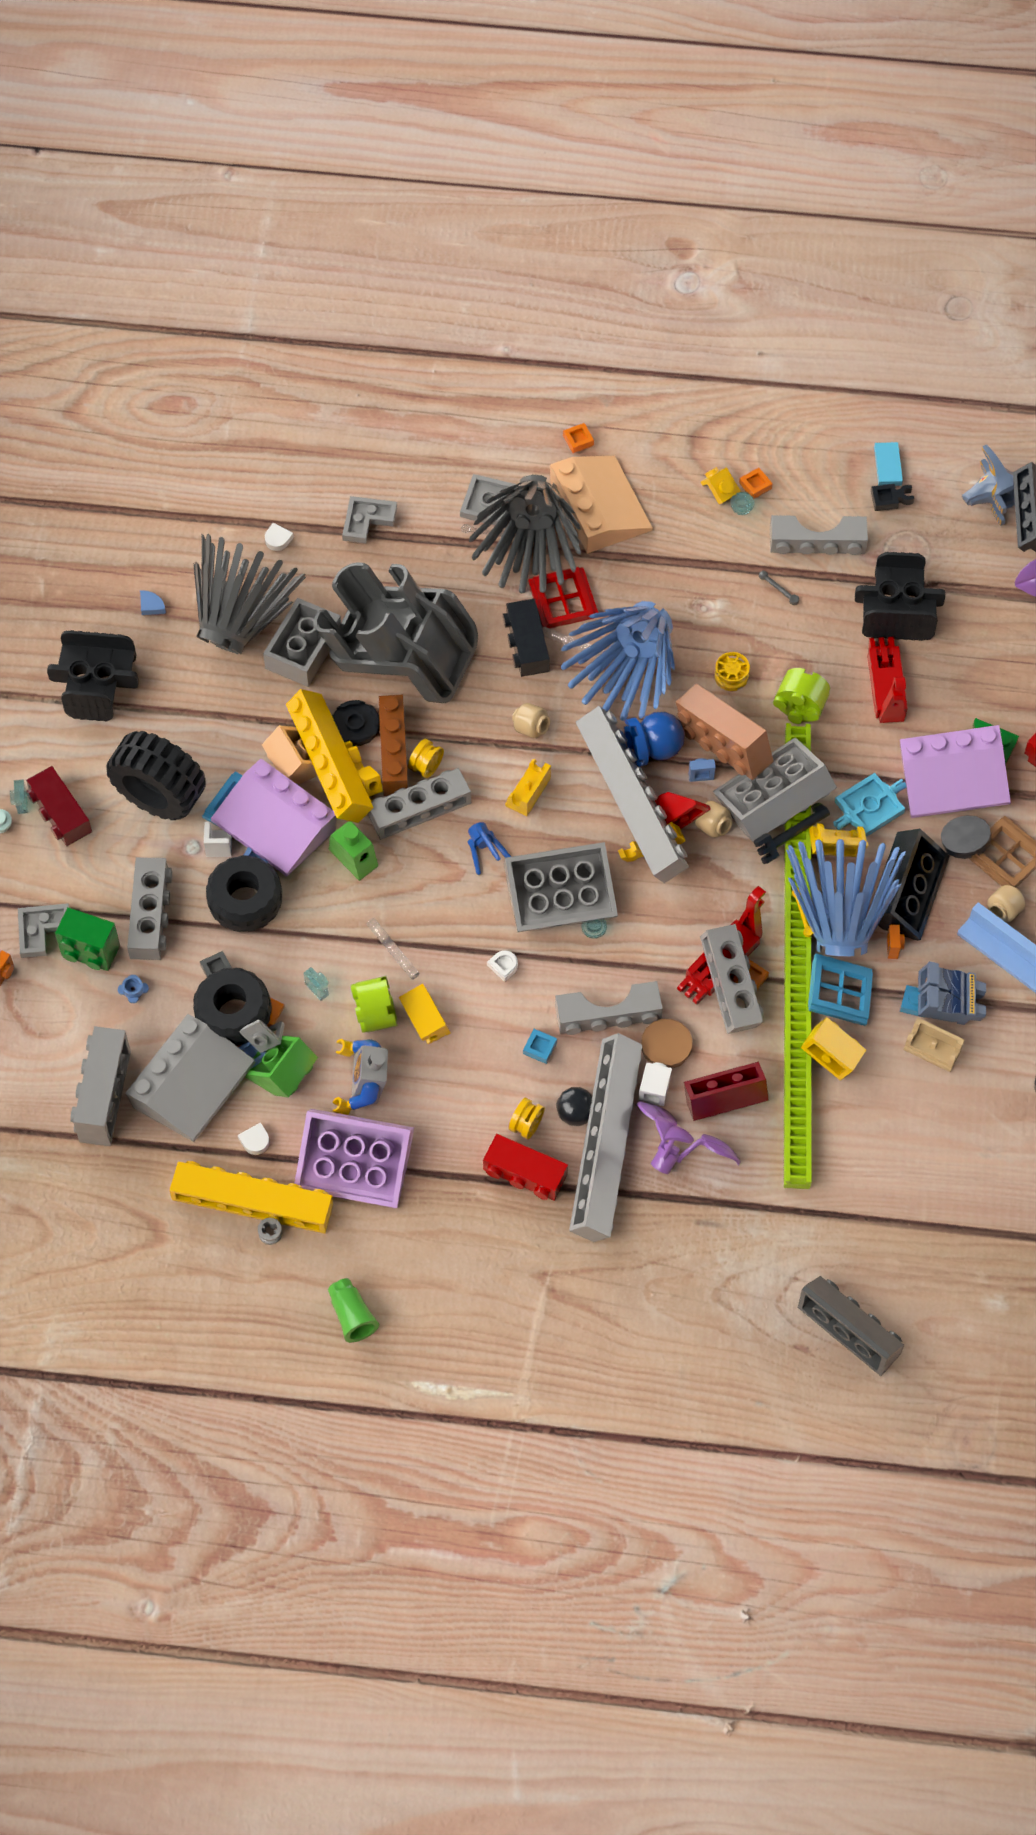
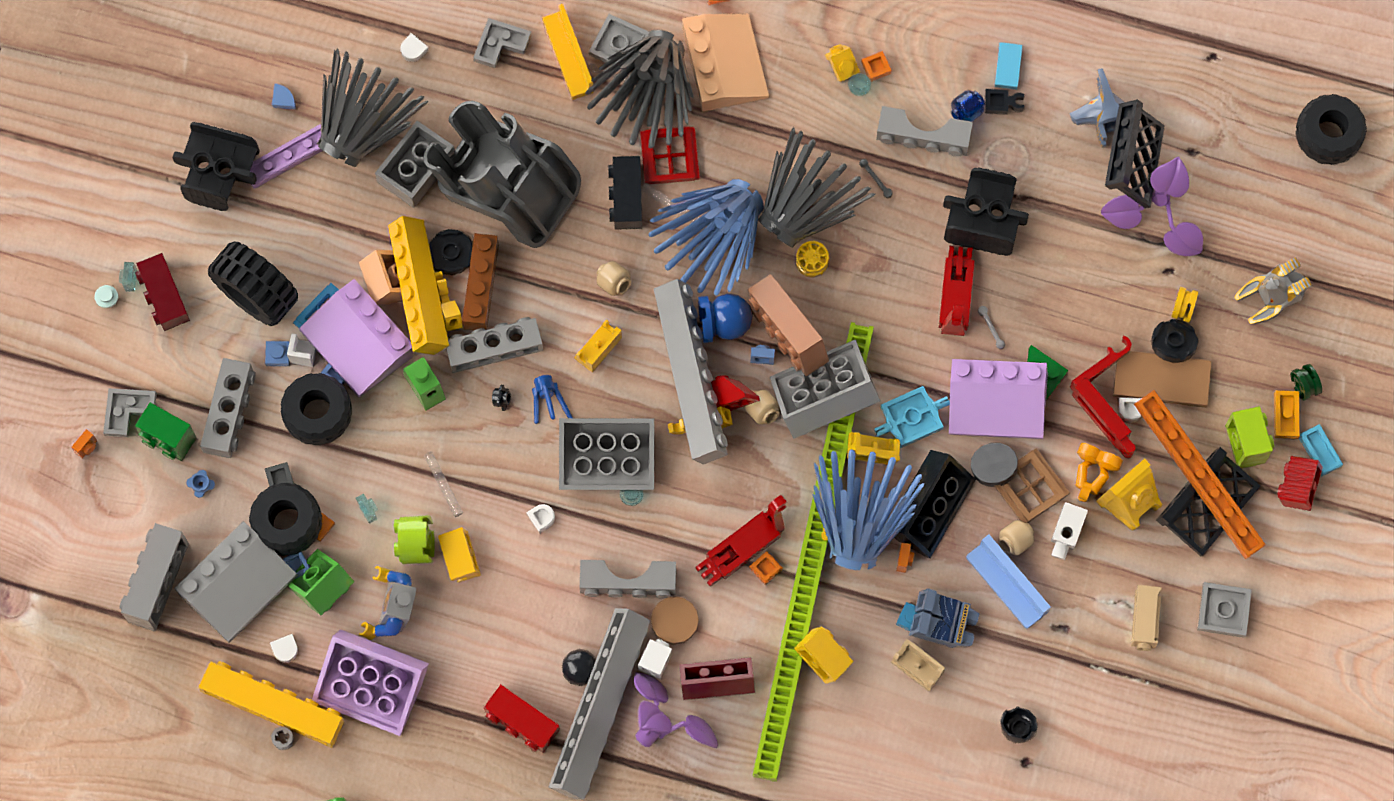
camera: 10 degrees right, 10 degrees up
(168, 657) = (286, 156): none -> lavender tile
(191, 848) = (277, 353): none -> medium blue plate
(262, 1036) = (306, 554): light grey bracket -> none
(426, 758) = (508, 301): yellow wheel -> none
(437, 853) = (501, 397): none -> black plate
(439, 517) = (568, 53): none -> yellow panel
(526, 1118) = (531, 673): yellow wheel -> none
(540, 1046) = (558, 603): dark azure plate -> none
(718, 620) = (787, 205): none -> dark grey plant
(720, 967) = (737, 582): light grey brick -> none
(772, 844) = (806, 446): black hinge -> none
(802, 695) = (870, 298): lime brick -> none
(844, 969) = (837, 616): dark azure piece -> none
(857, 503) = (967, 106): none -> clear blue head
(917, 695) = (983, 312): none -> light grey hinge

